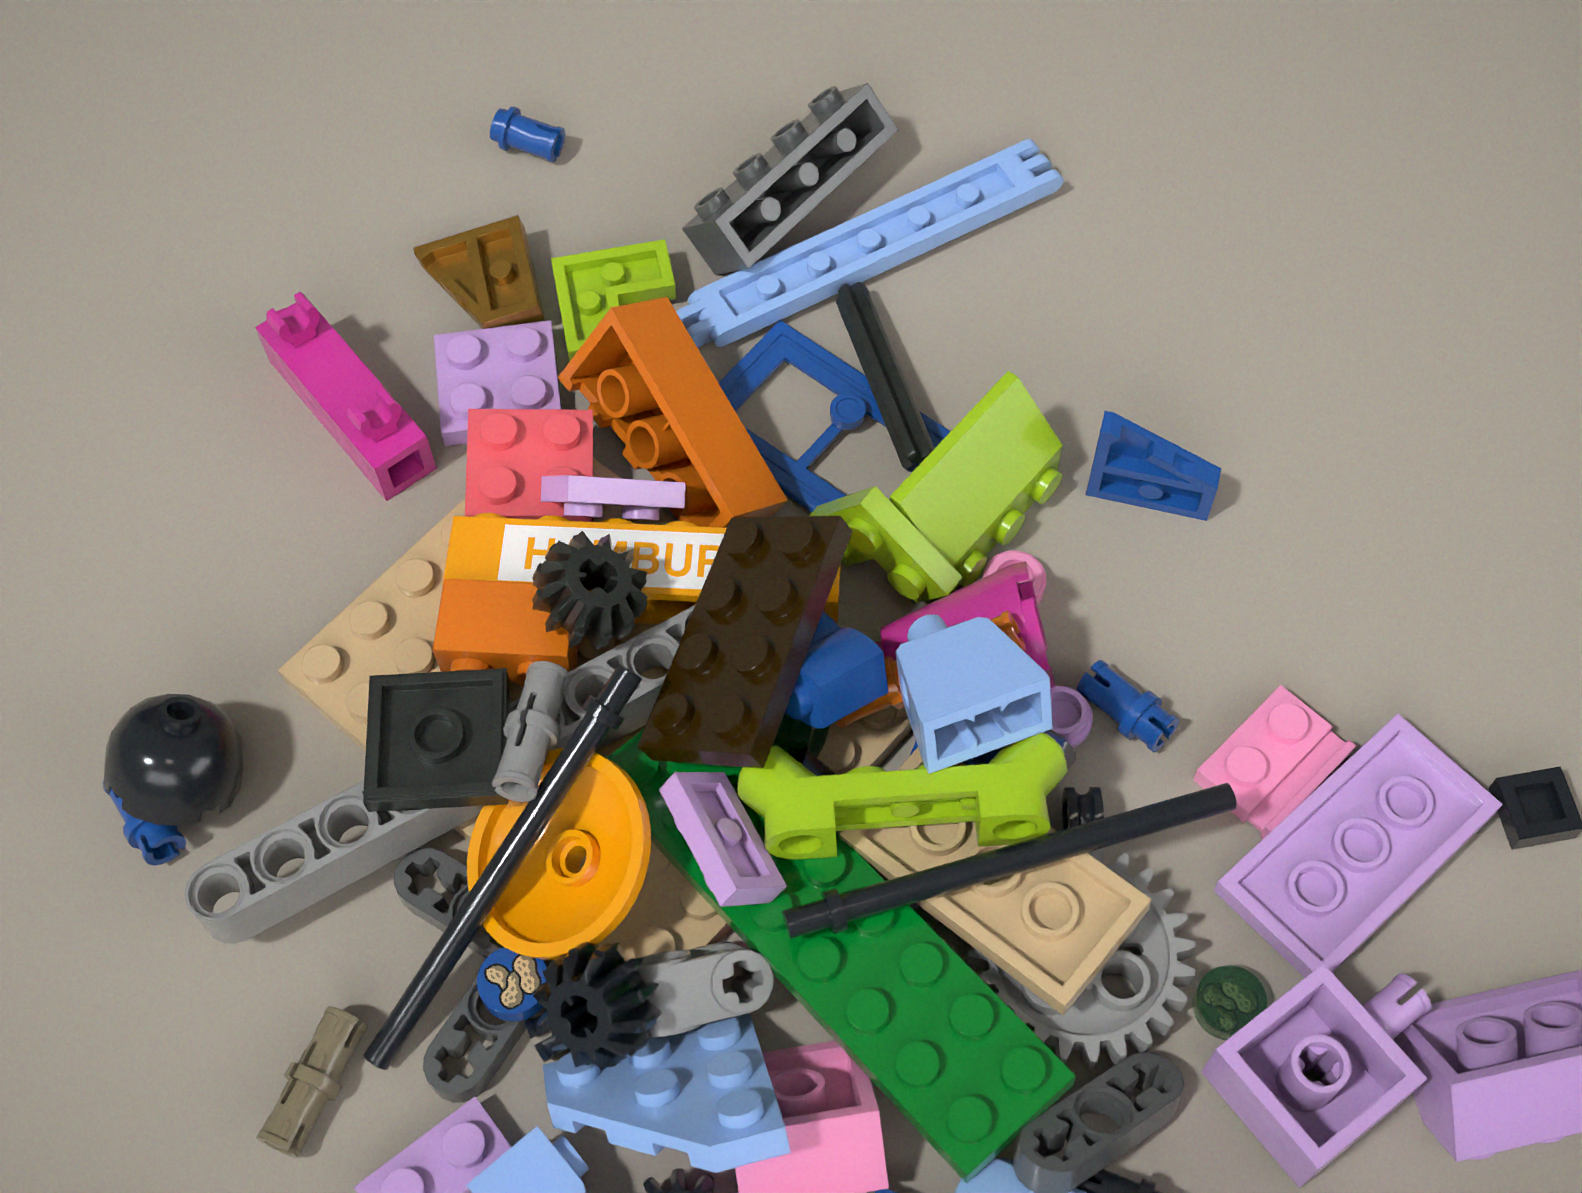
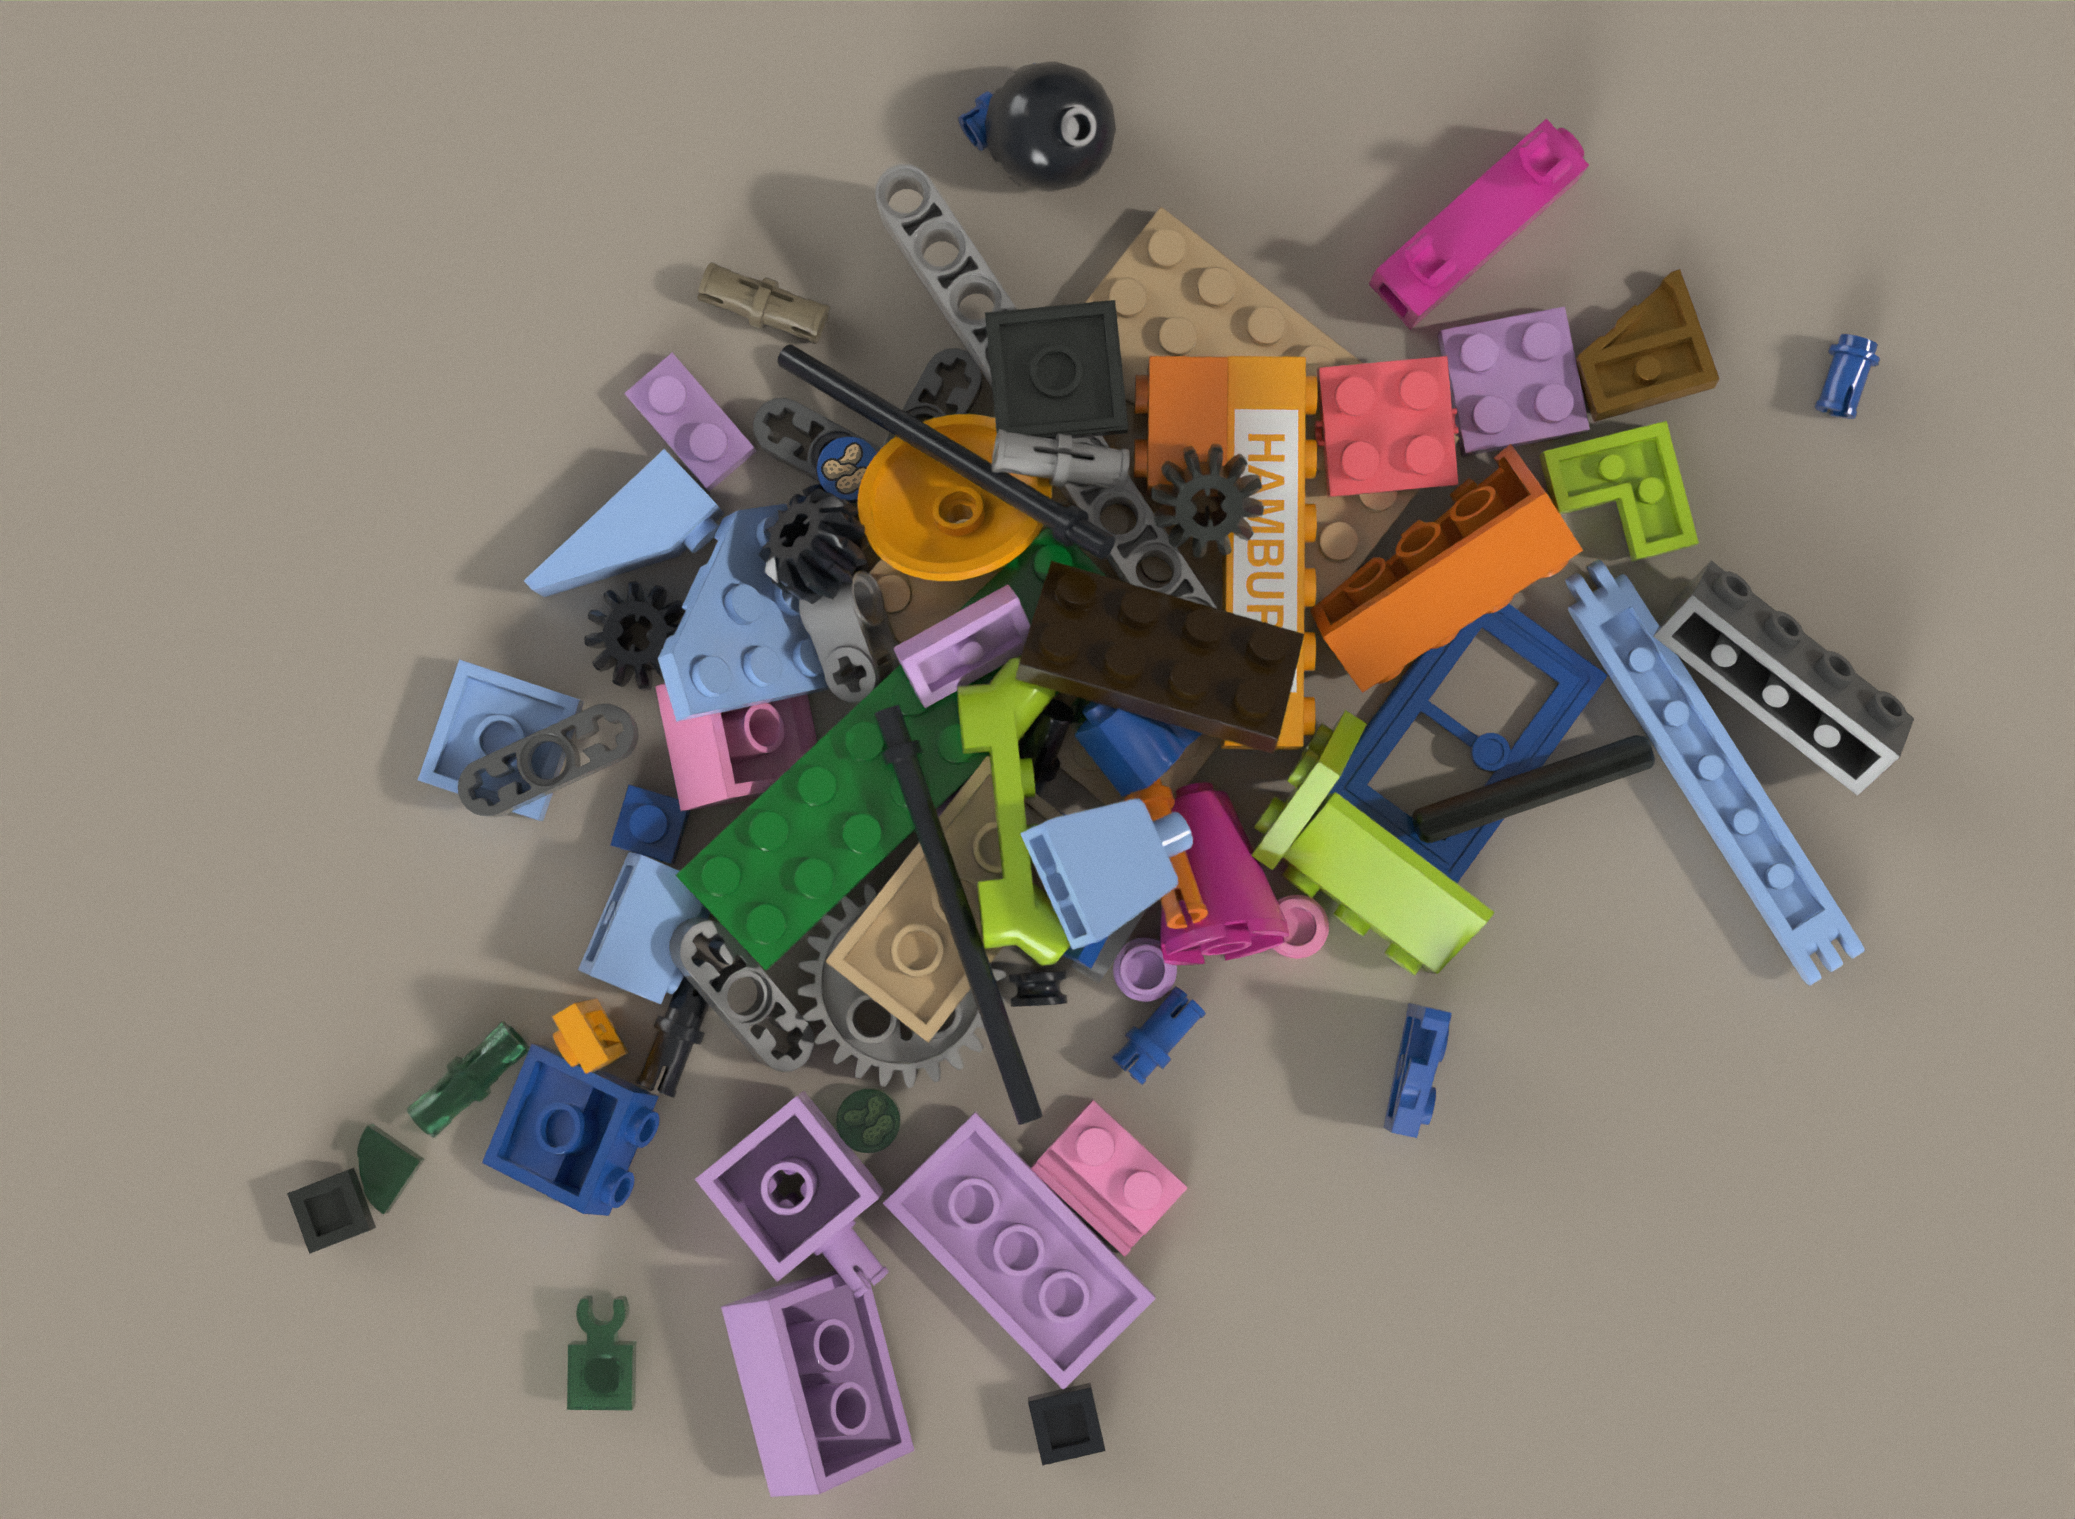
camera: 90 degrees right, 25 degrees up
(587, 495) = (1346, 521): lavender plate -> none

